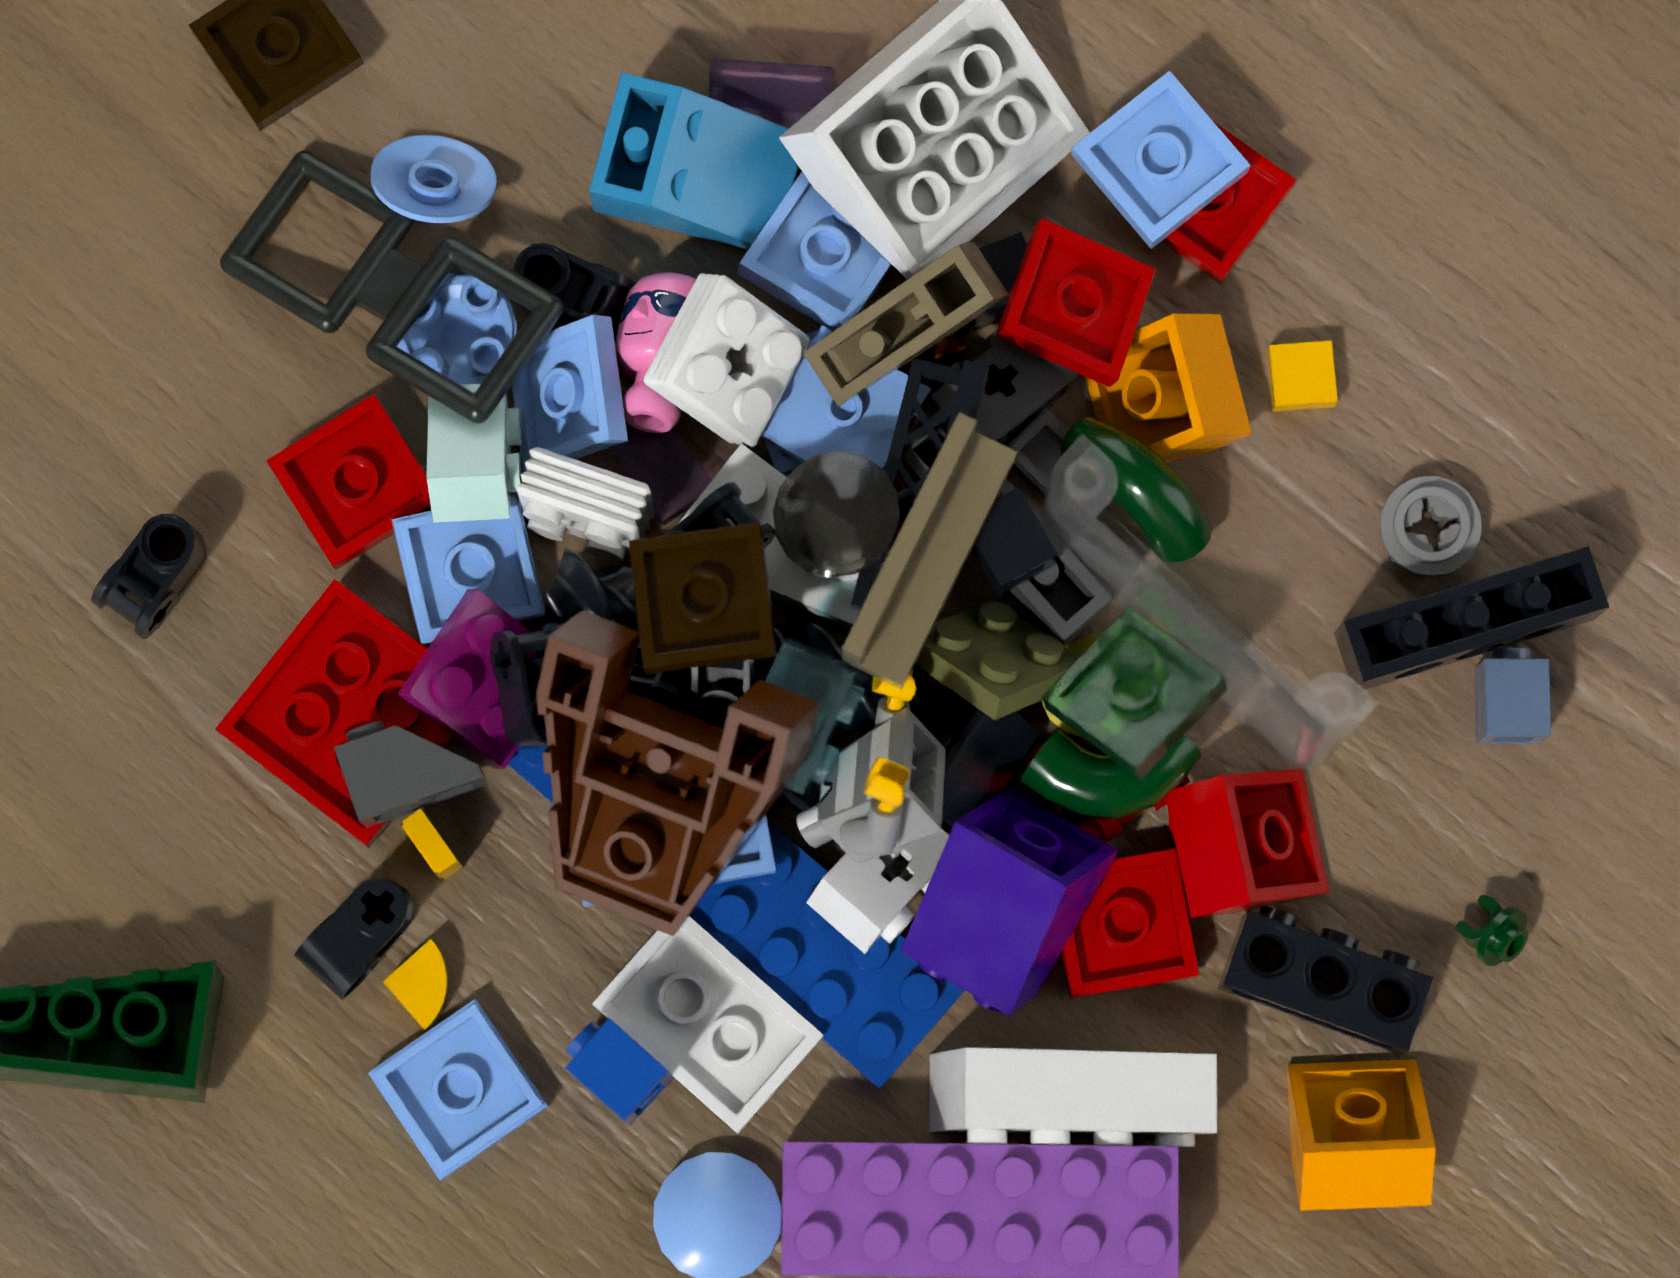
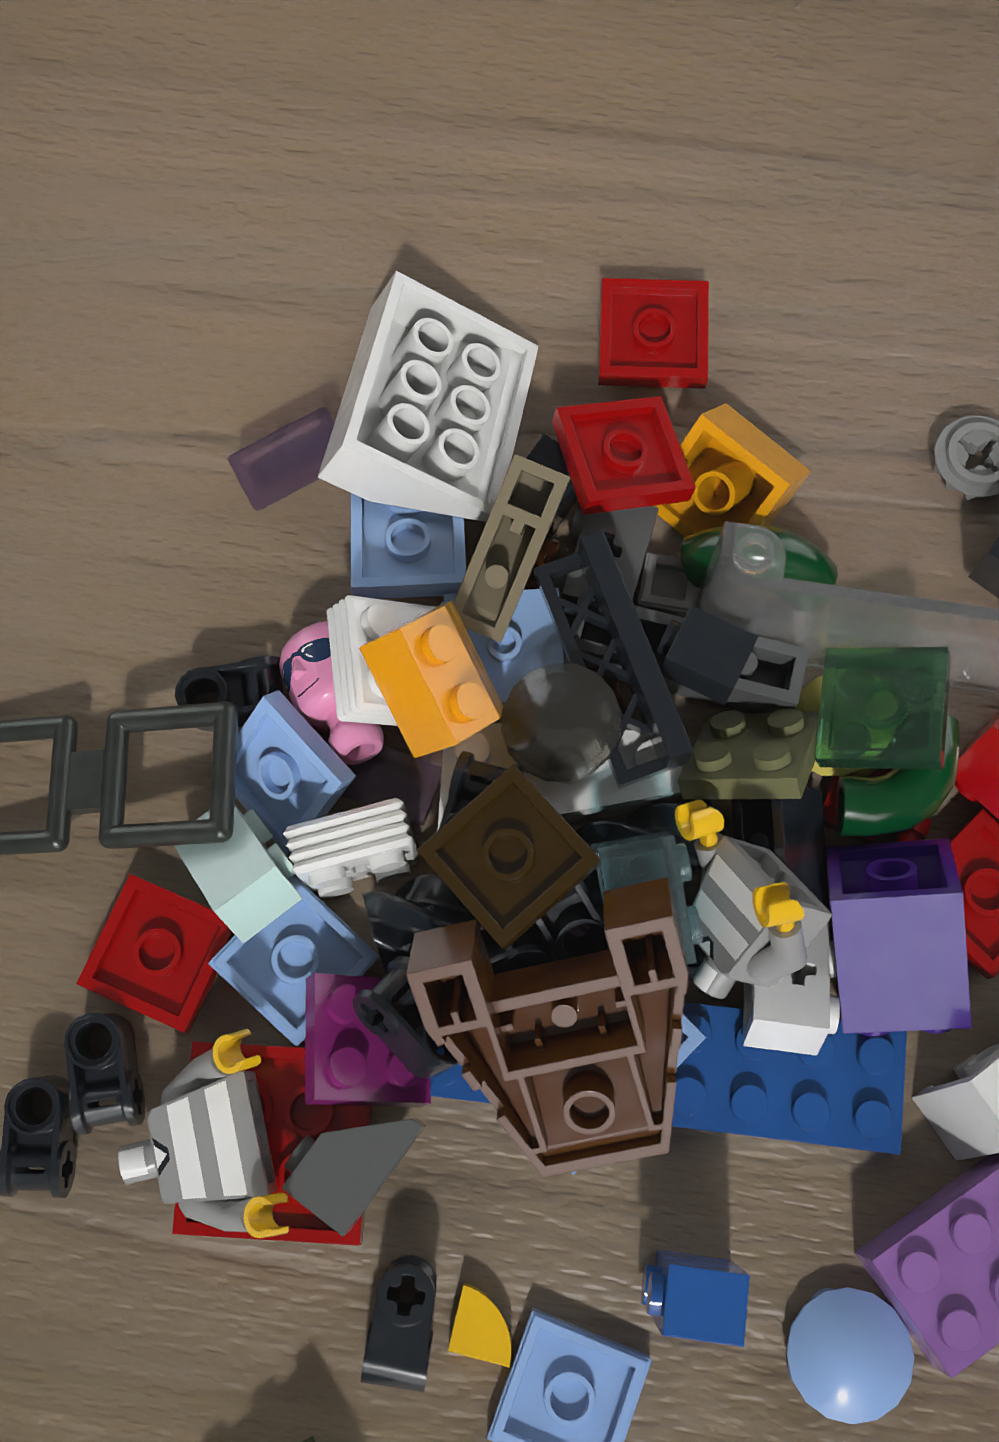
camera: 30 degrees left, 5 degrees down
(240, 558) = (103, 1077): none -> black piece
(298, 672) = (211, 1144): none -> torso
(431, 845) = (412, 1206): yellow tile -> none
(433, 179) = (71, 681): light blue dish -> none
(462, 329) = (167, 778): light blue dish -> none
(689, 163) = (262, 544): dark azure slope -> none
(709, 1022) = (734, 1199): white plate -> none
(750, 402) = (433, 680): none -> light orange slope
(928, 553) = (664, 701): dark tan fence -> none
(1160, 159) = (606, 321): light blue plate -> none
(1302, 376) = (808, 414): yellow tile -> none

